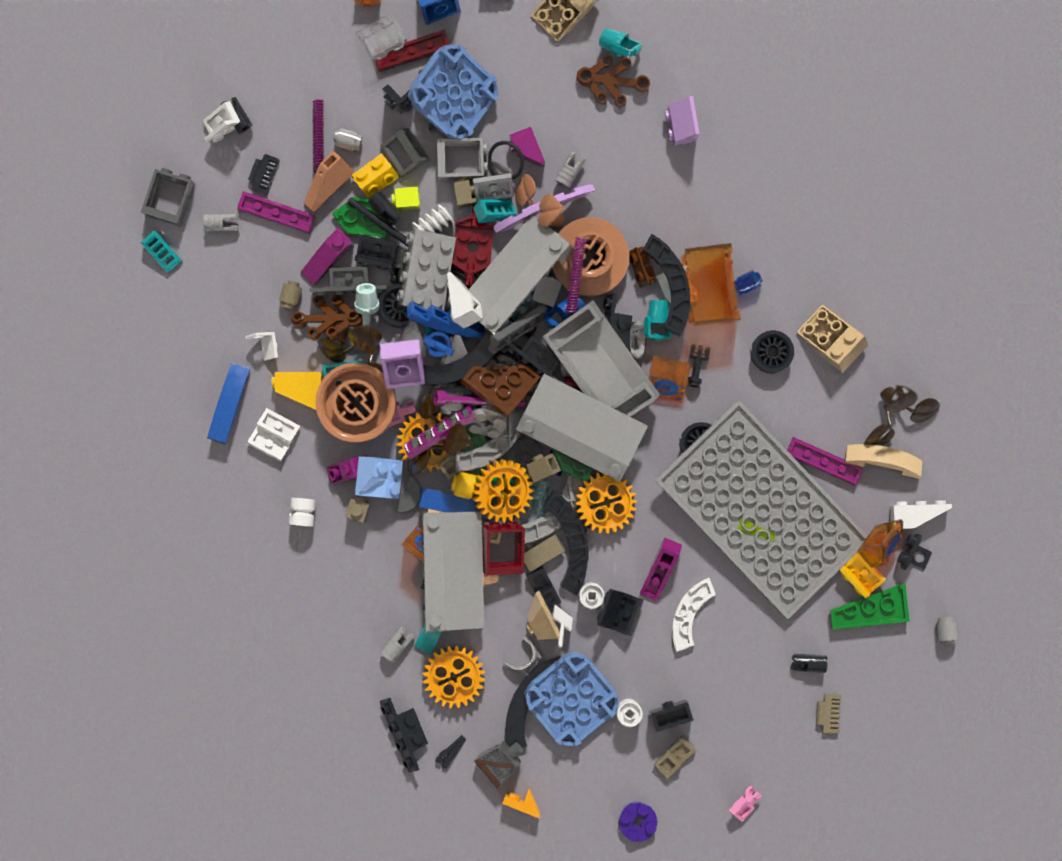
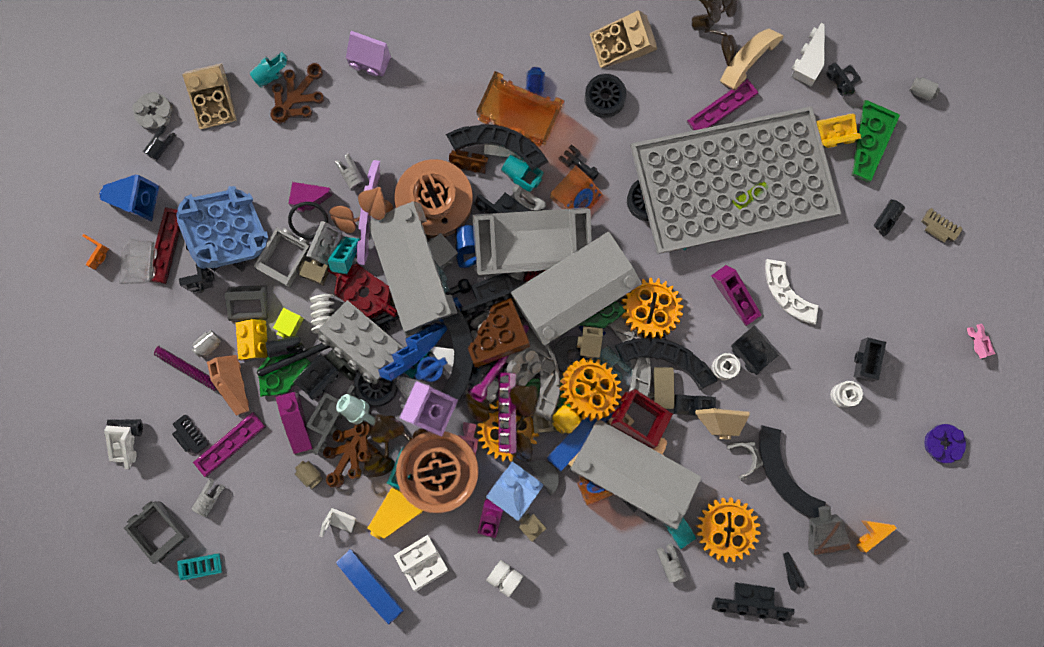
camera: 55 degrees left, 5 degrees down
(464, 305) = (411, 325): white slope -> none
(517, 329) = (458, 293): dark grey plate -> none
(565, 621) = (735, 402): white piece -> none
(571, 698) = (806, 437): medium blue plate -> none
(576, 275) = (444, 212): magenta piece -> none
(675, 756) = (905, 378): dark tan slope -> none
(881, 543) = (821, 97): clear orange slope -> none

